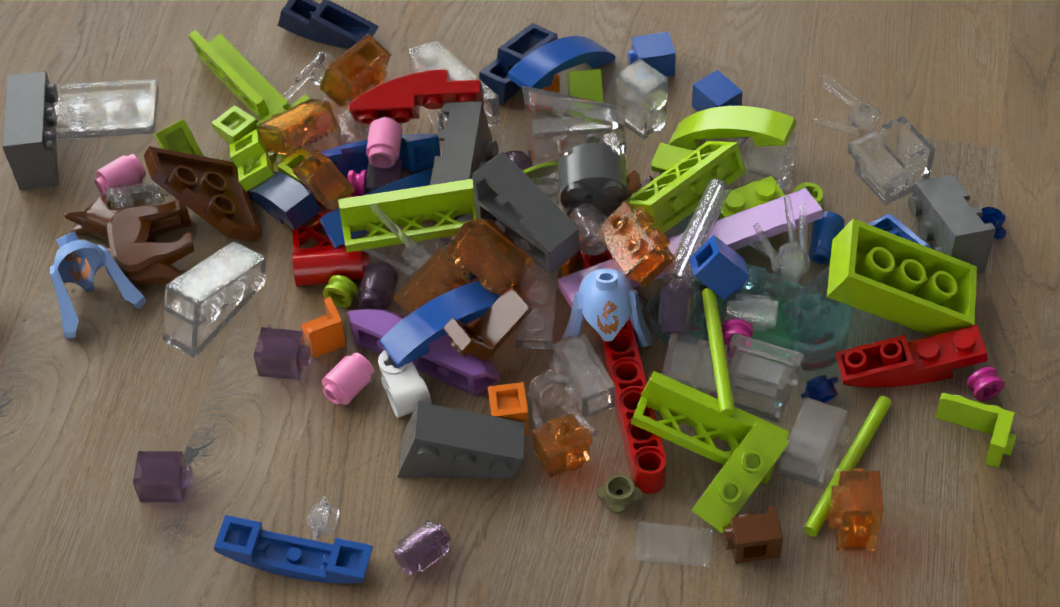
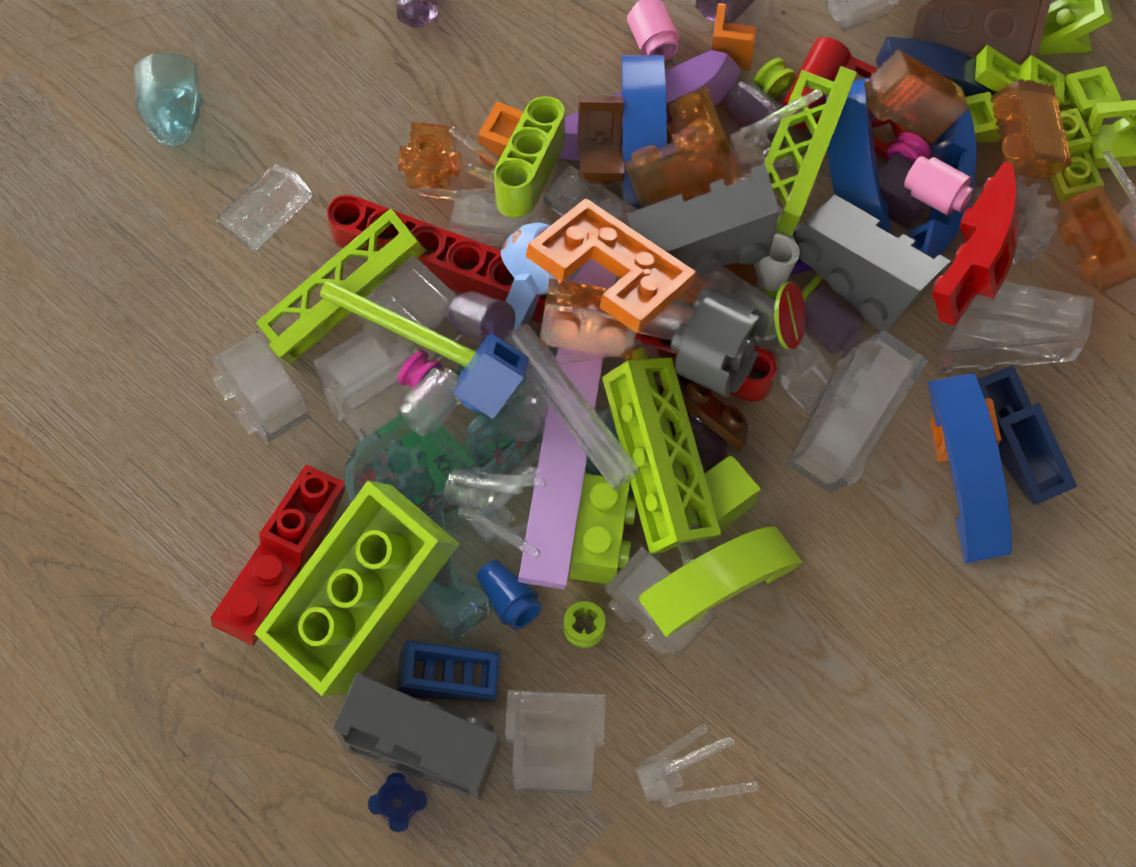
camera: 120 degrees right, 15 degrees up
(402, 386) = (599, 67): white piece -> none
(460, 444) = (494, 69): dark grey wedge -> none
(549, 359) = (529, 157): none -> lime beam
(585, 84) = (917, 476): lime slope -> none
(585, 244) = (647, 273): none -> orange plate
(619, 483) = (350, 178): olive plate -> none
(642, 98) = (844, 512): clear brick -> none
(654, 50) = (929, 592): brick -> none
(714, 92) = (803, 620): blue brick -> none
(739, 476) = (268, 284): lime plate -> none
(754, 536) = (205, 265): reddish brown brick -> none
(821, 389) = (315, 440): clear blue plate -> none
(848, 463) = (220, 416): lime axle -> none
(856, 510) = (144, 353): clear orange brick -> none
(983, 418) = (152, 578): lime bracket -> none
(985, 383) = (194, 612): dark pink bush -> none

